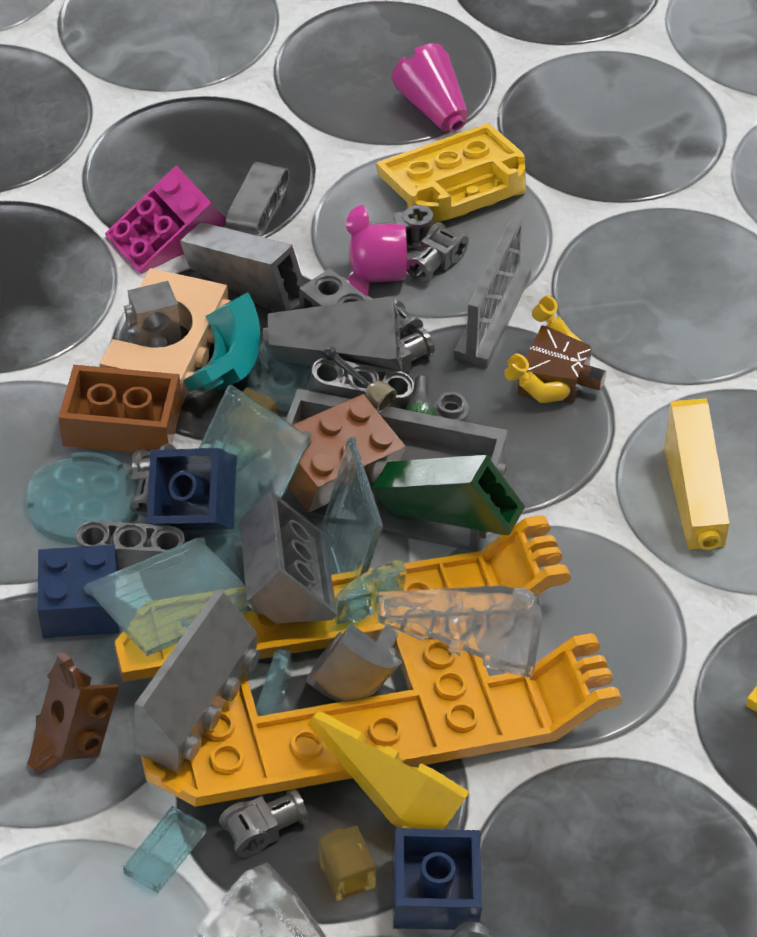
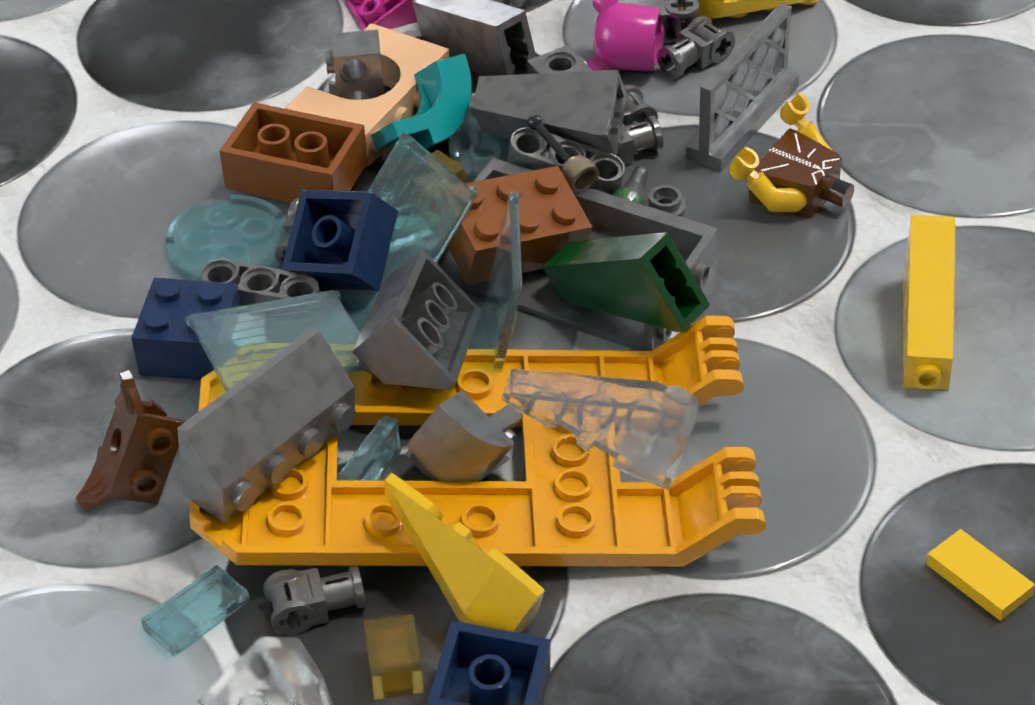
camera: 15 degrees right, 5 degrees down
(358, 598) = (487, 371): clear light blue slope -> none

